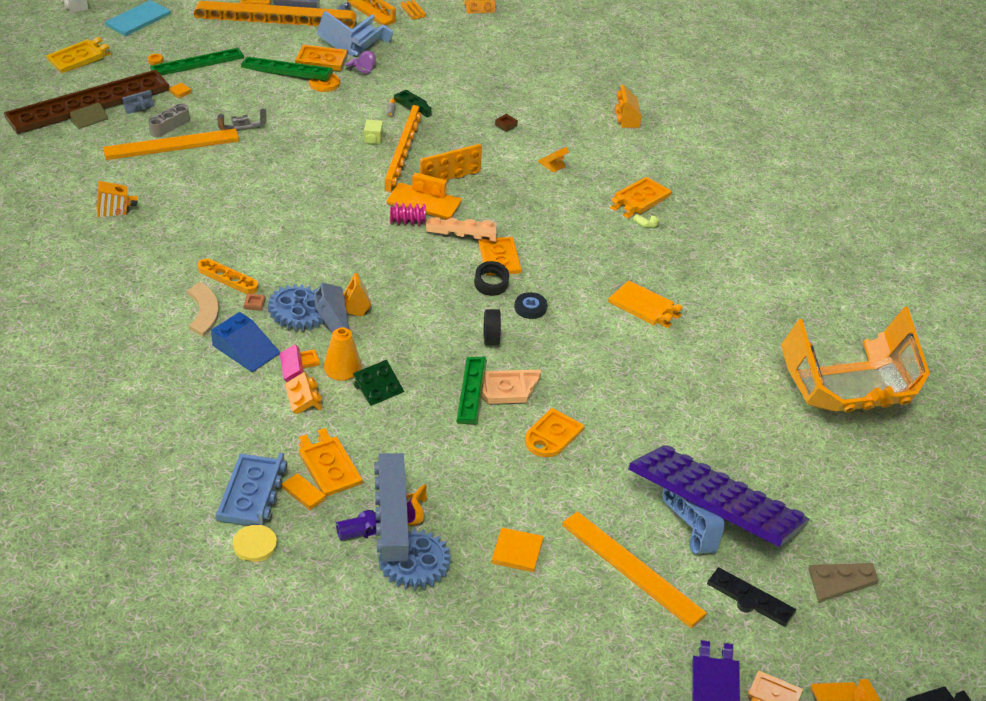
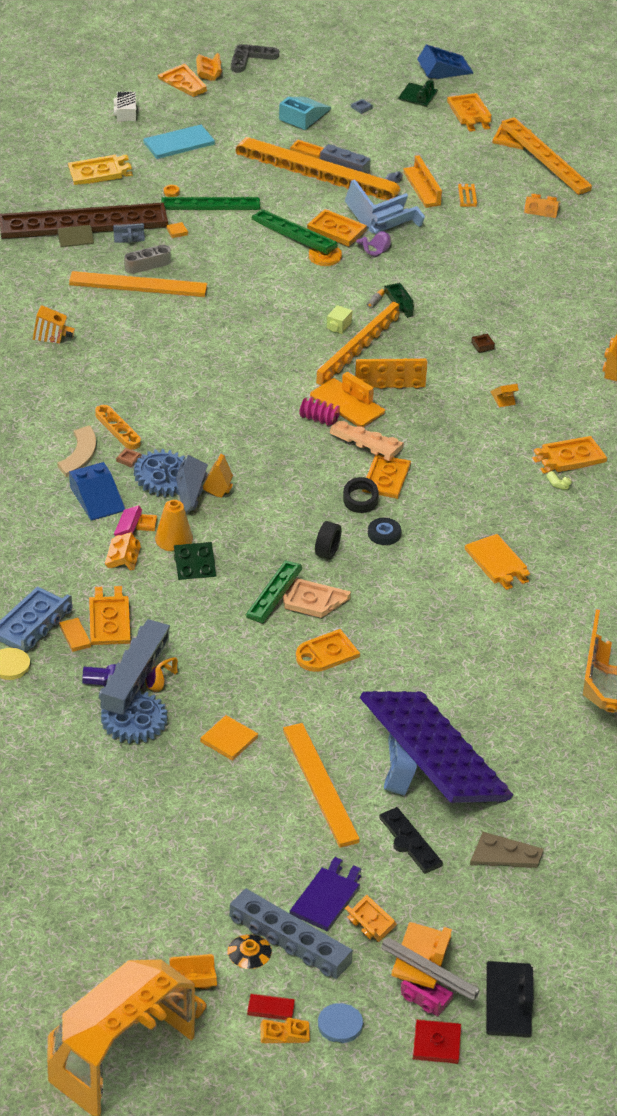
camera: 25 degrees right, 0 degrees up
(242, 123) = (216, 279): flat silver piece -> none

